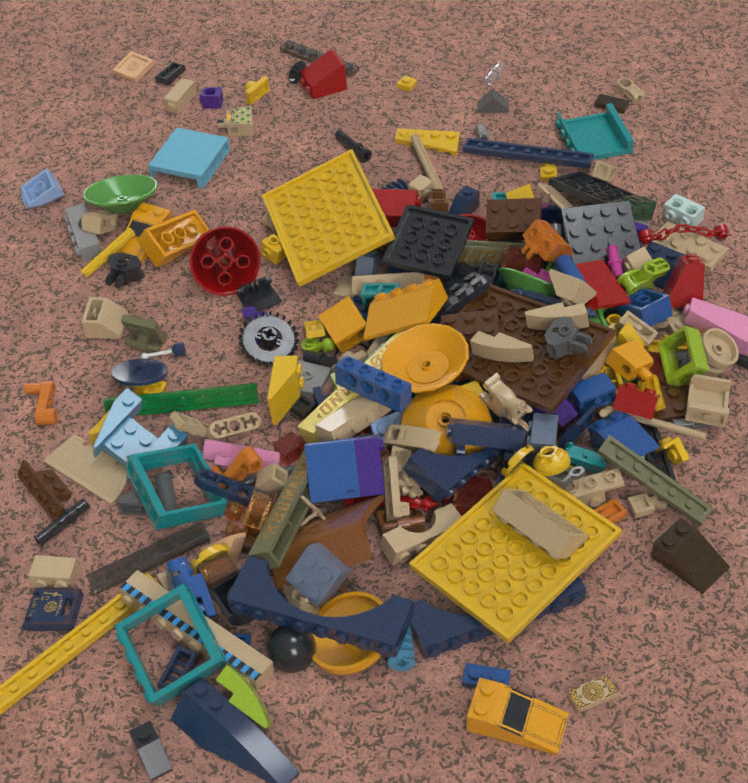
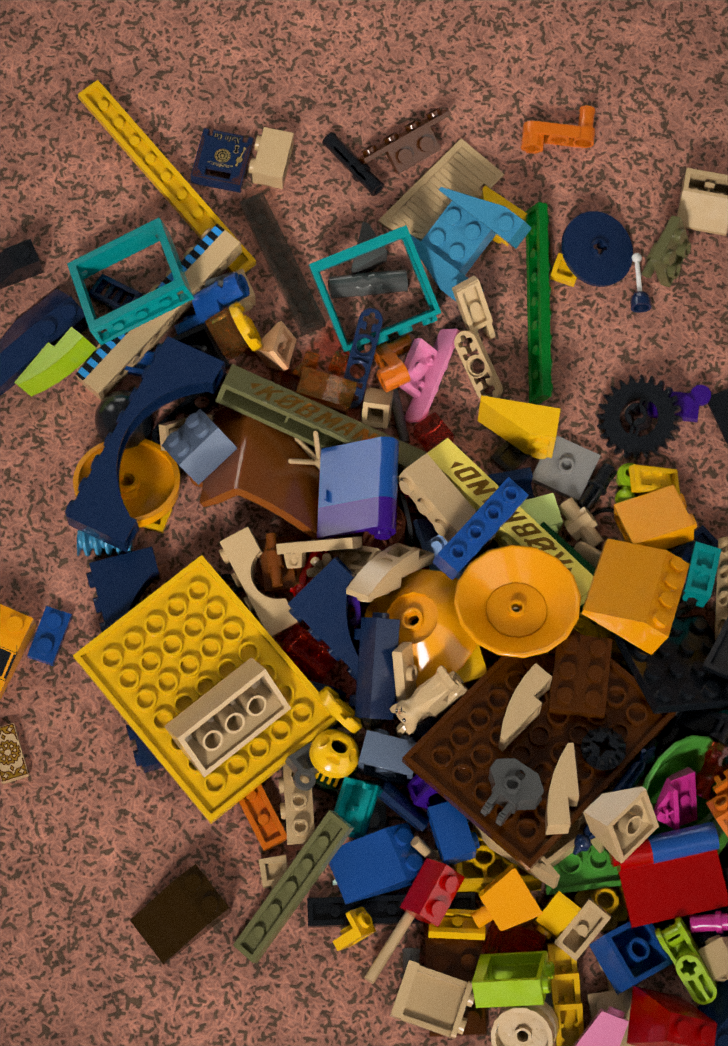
camera: 90 degrees right, 25 degrees up
(486, 416) = (404, 671): none -> tan plate
(512, 307) = (609, 759): none -> black gear

